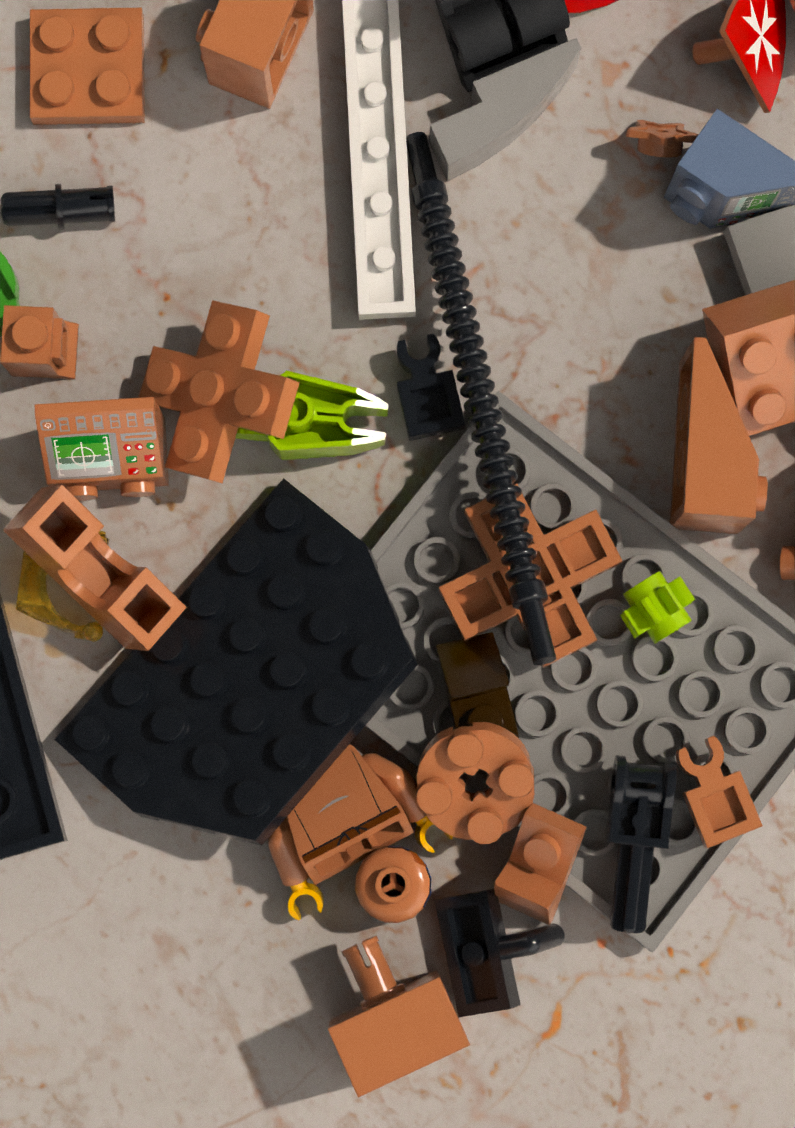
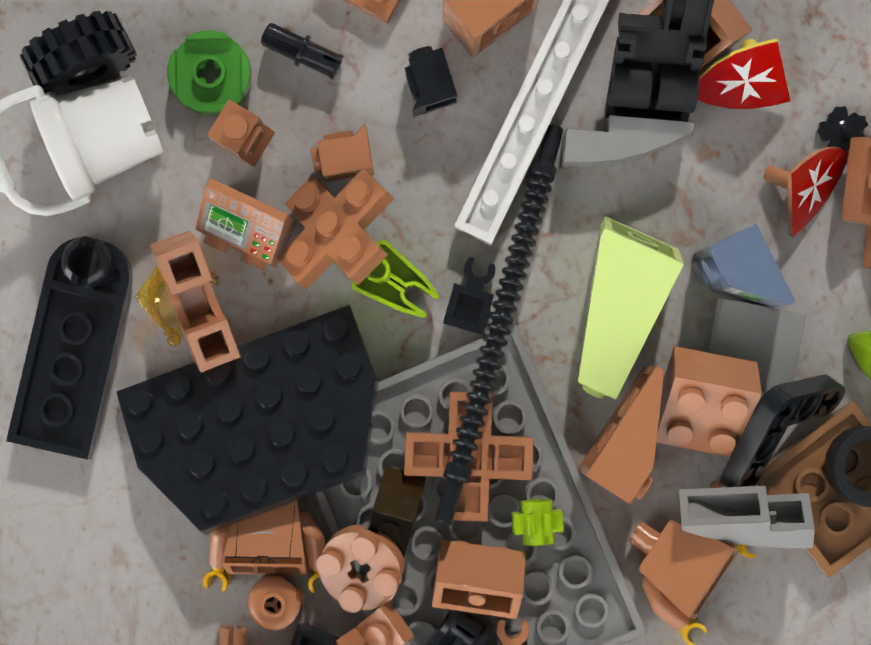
camera: 30 degrees right, 5 degrees up
(177, 302) = (343, 155): none -> nougat window
(234, 159) = (429, 80): none -> black window
(613, 292) = (626, 296): none -> yellowish green slope
(626, 713) = (479, 579): none -> nougat brick
(660, 139) = (712, 217): nougat plate -> none

